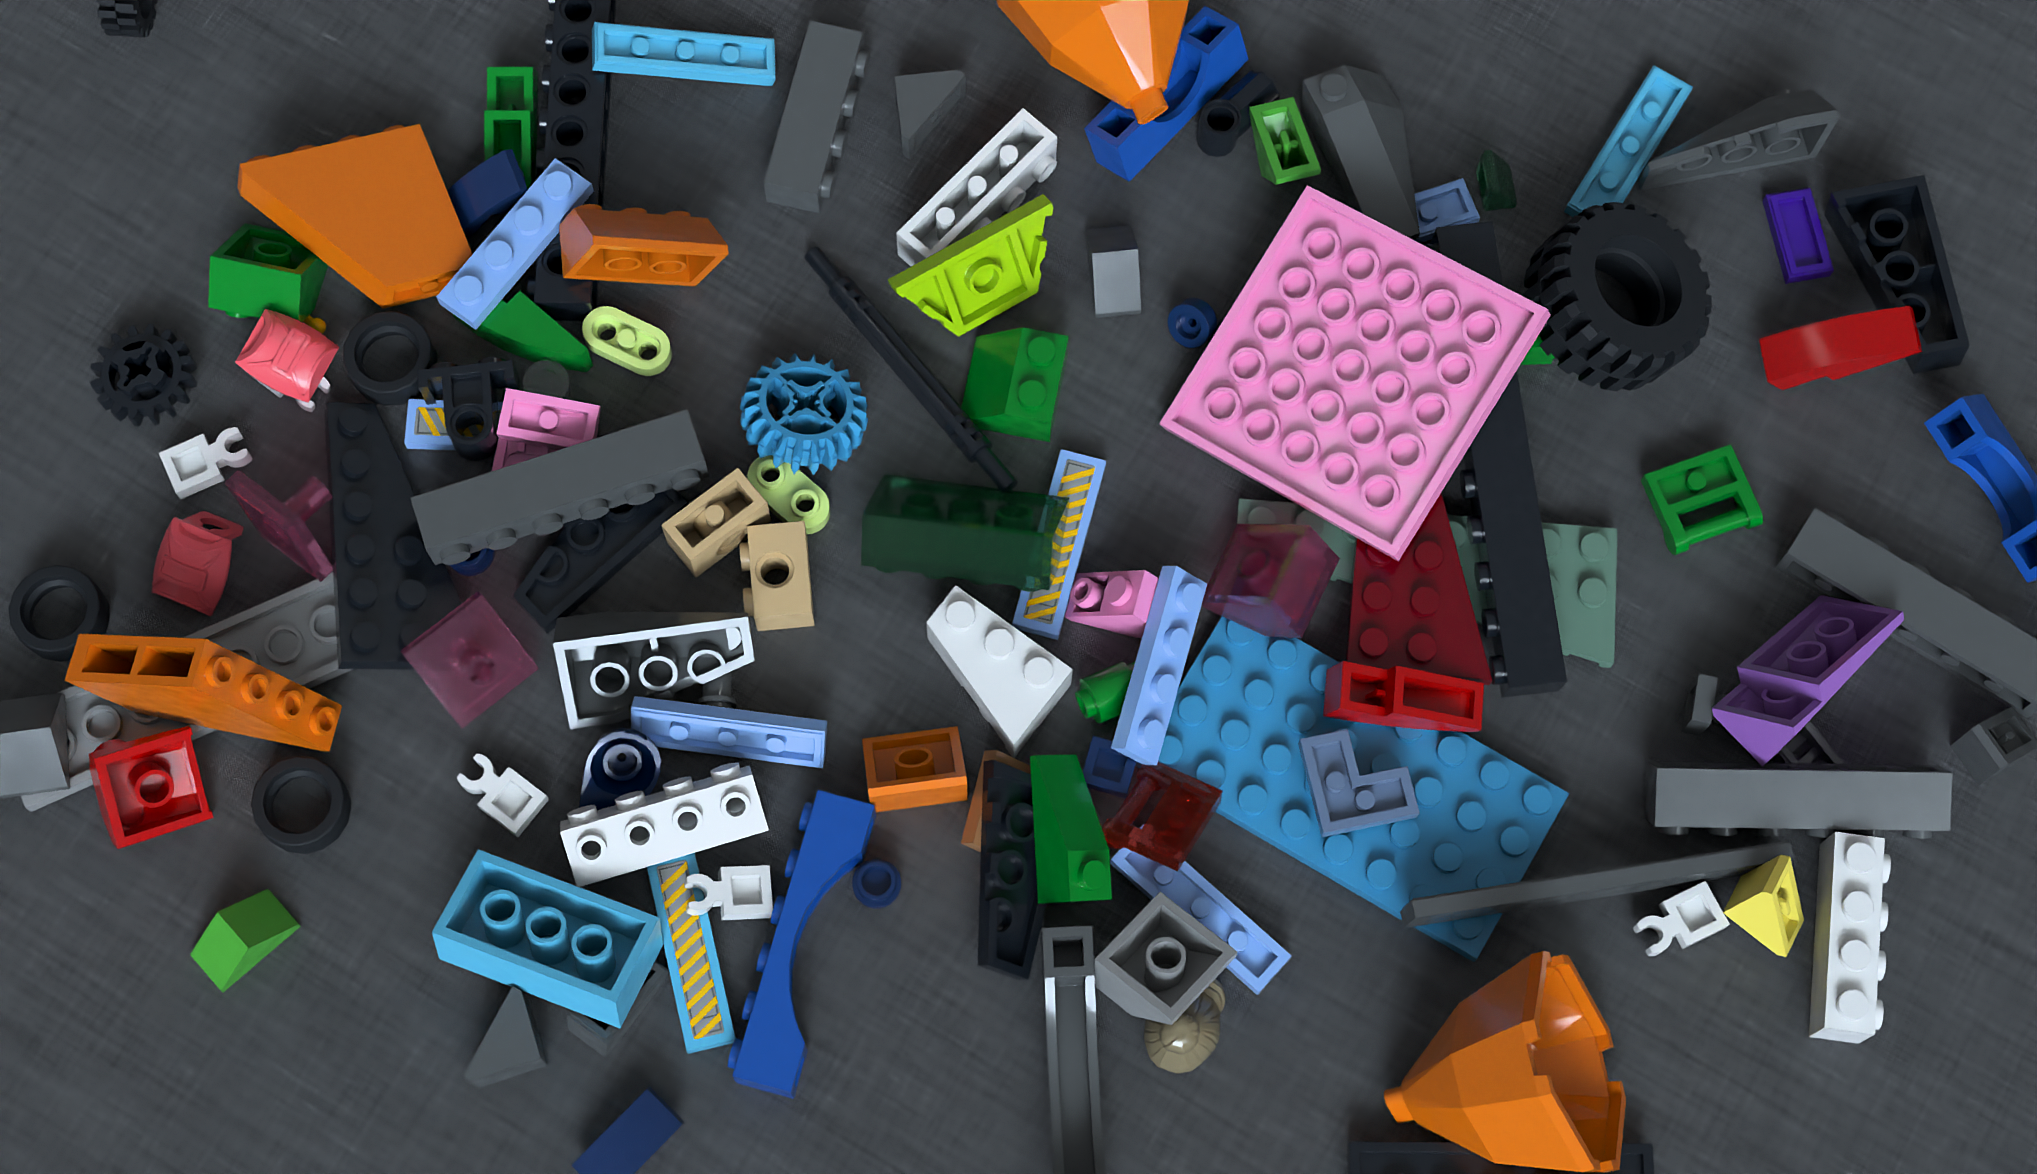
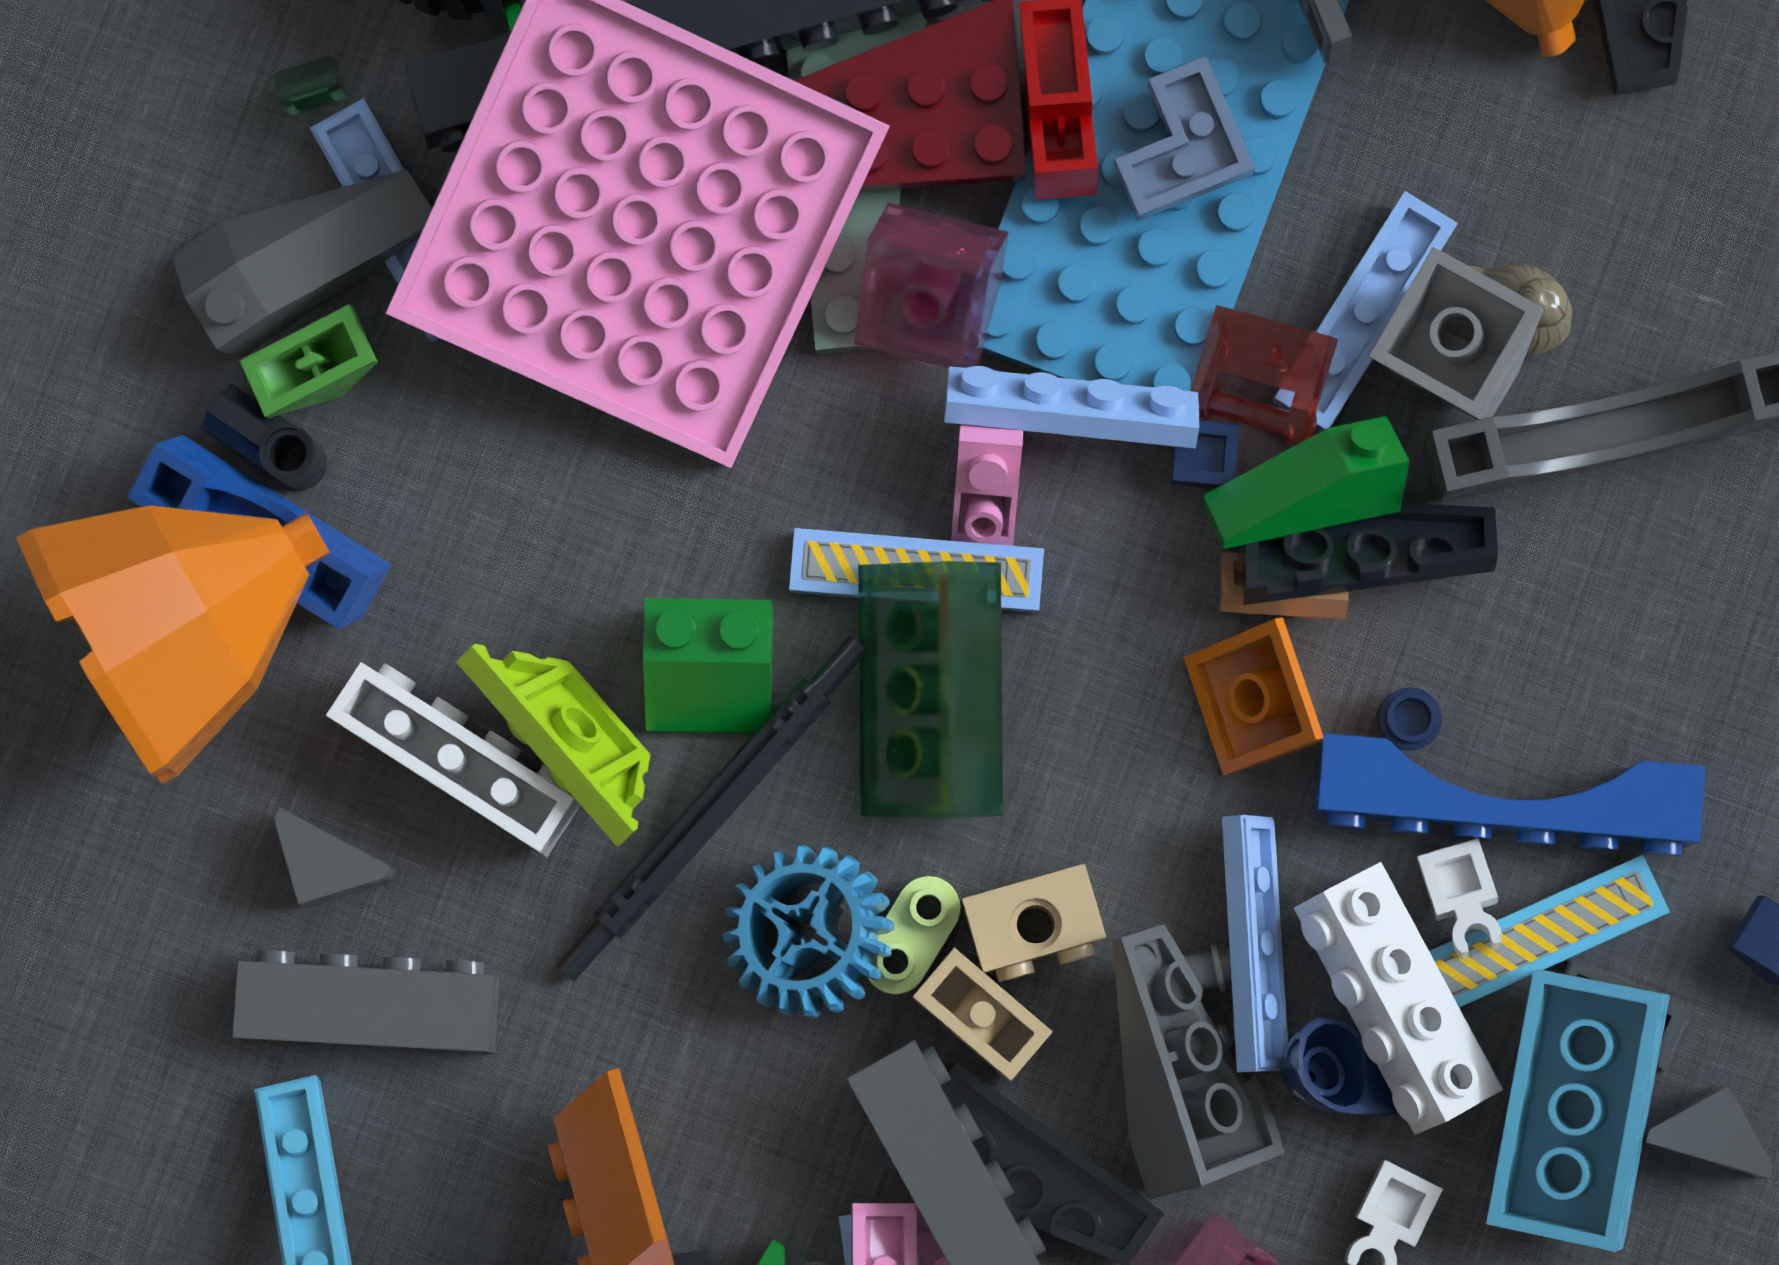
camera: 95 degrees left, 10 degrees up
(629, 342) = (739, 1195): yellowish green plate -> none
(998, 666) = (1108, 611): white wedge -> none
(1104, 692) = (1107, 471): green brick -> none
(1114, 271) = (517, 565): slope -> none
(1192, 322) = (582, 447): dark blue tile -> none

